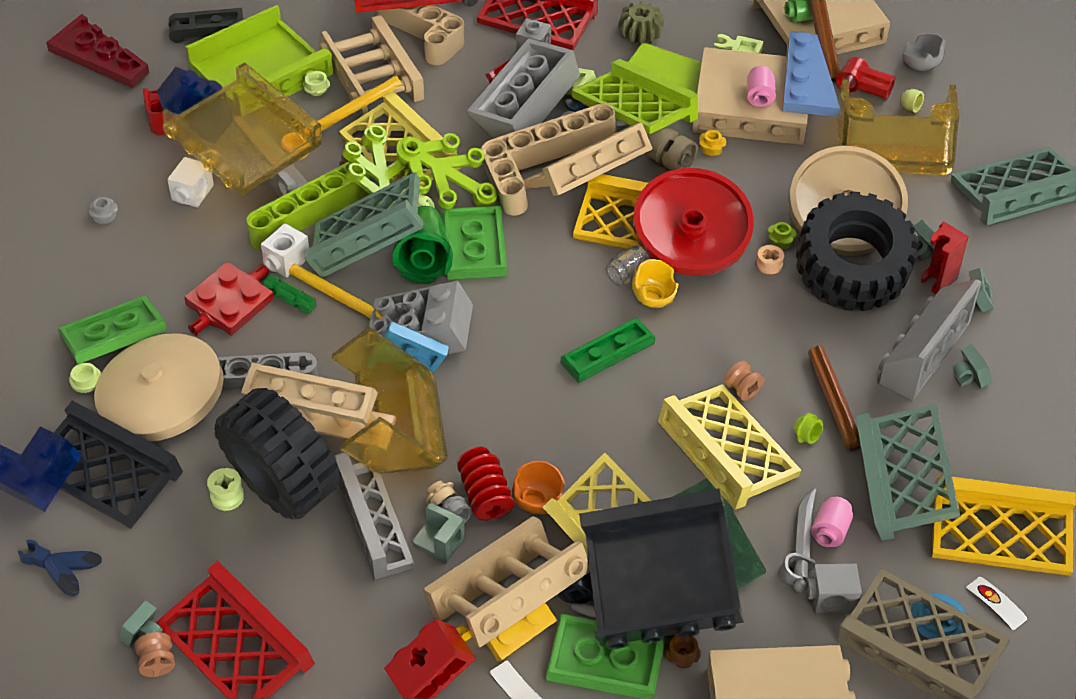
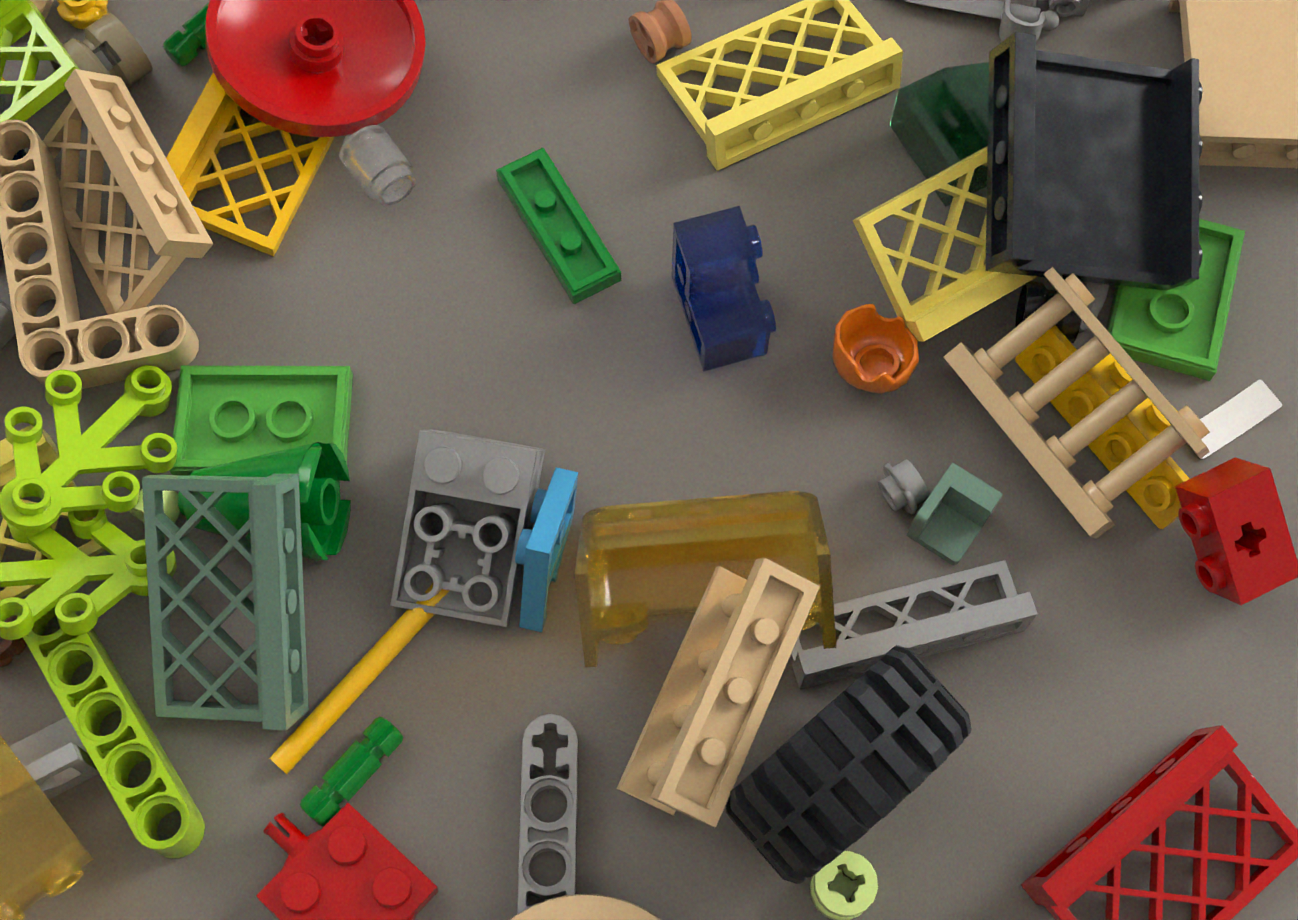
camera: 85 degrees left, 20 degrees up
(284, 249) = (220, 760): white brick -> none
(439, 492) = (873, 507): tan plate -> none
(485, 484) = (866, 427): red piece -> none
(569, 413) = (717, 289): none -> clear blue brick
(654, 284) = (435, 130): yellow hair -> none

